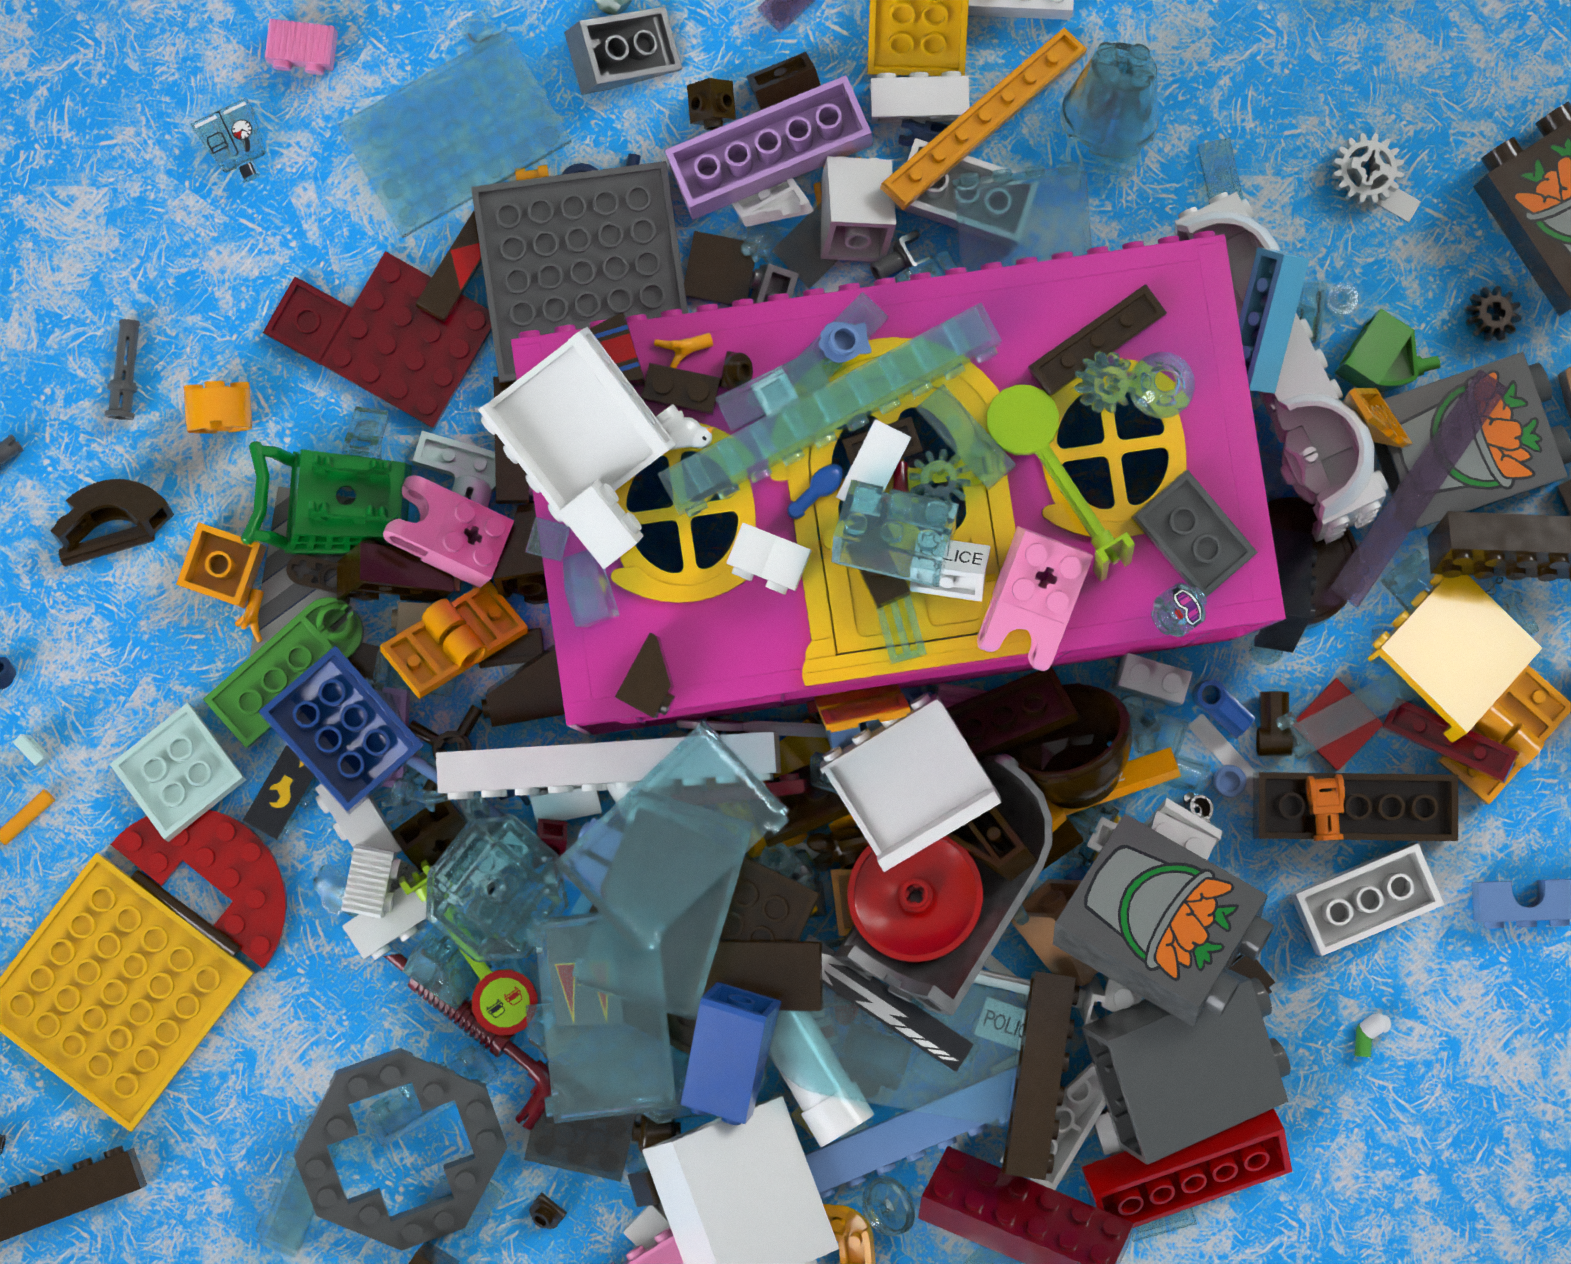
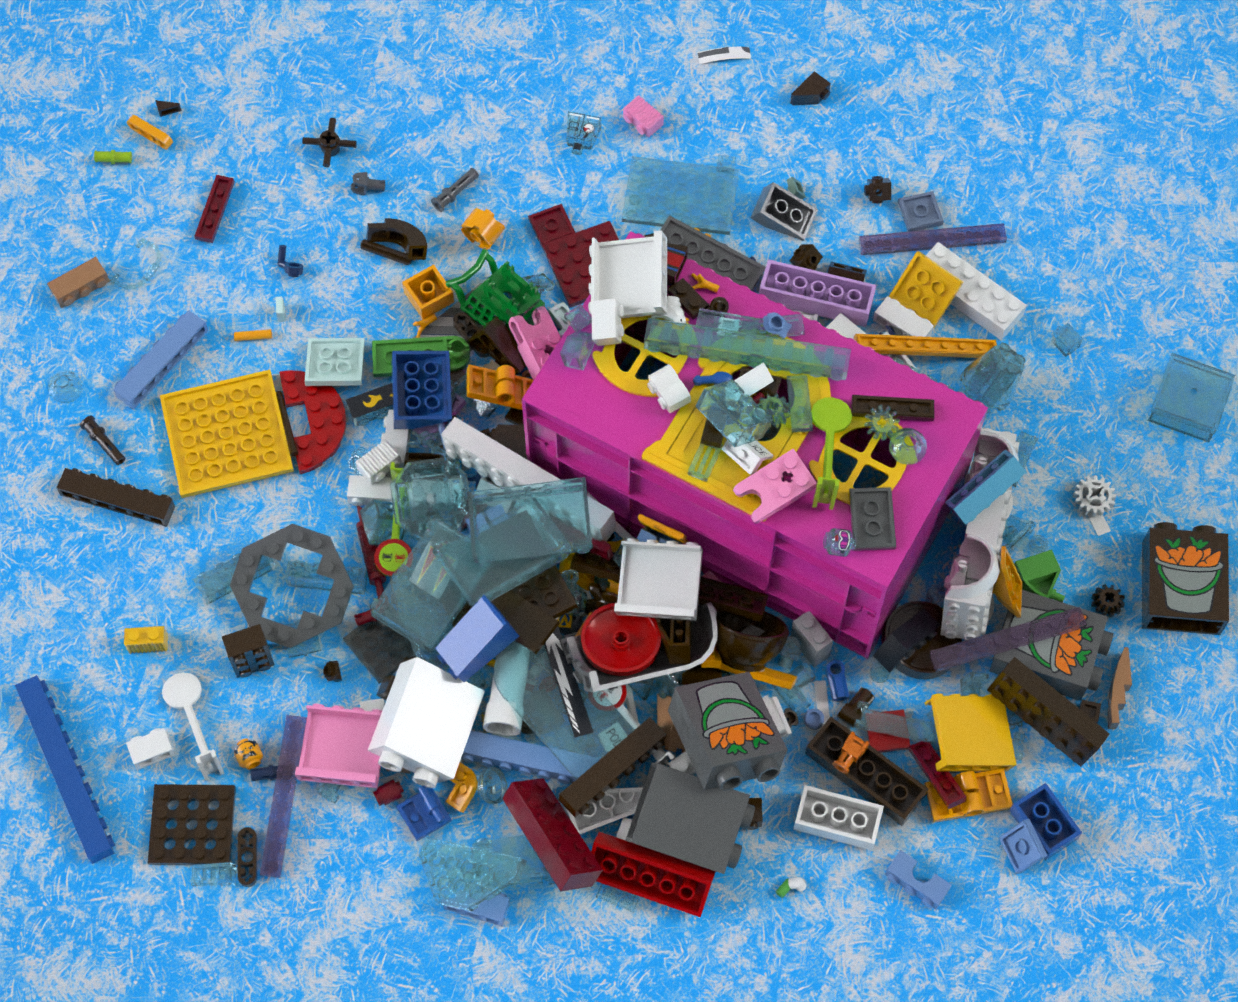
camera: 40 degrees right, 20 degrees down
(648, 680) = (573, 401): dark brown slope -> none

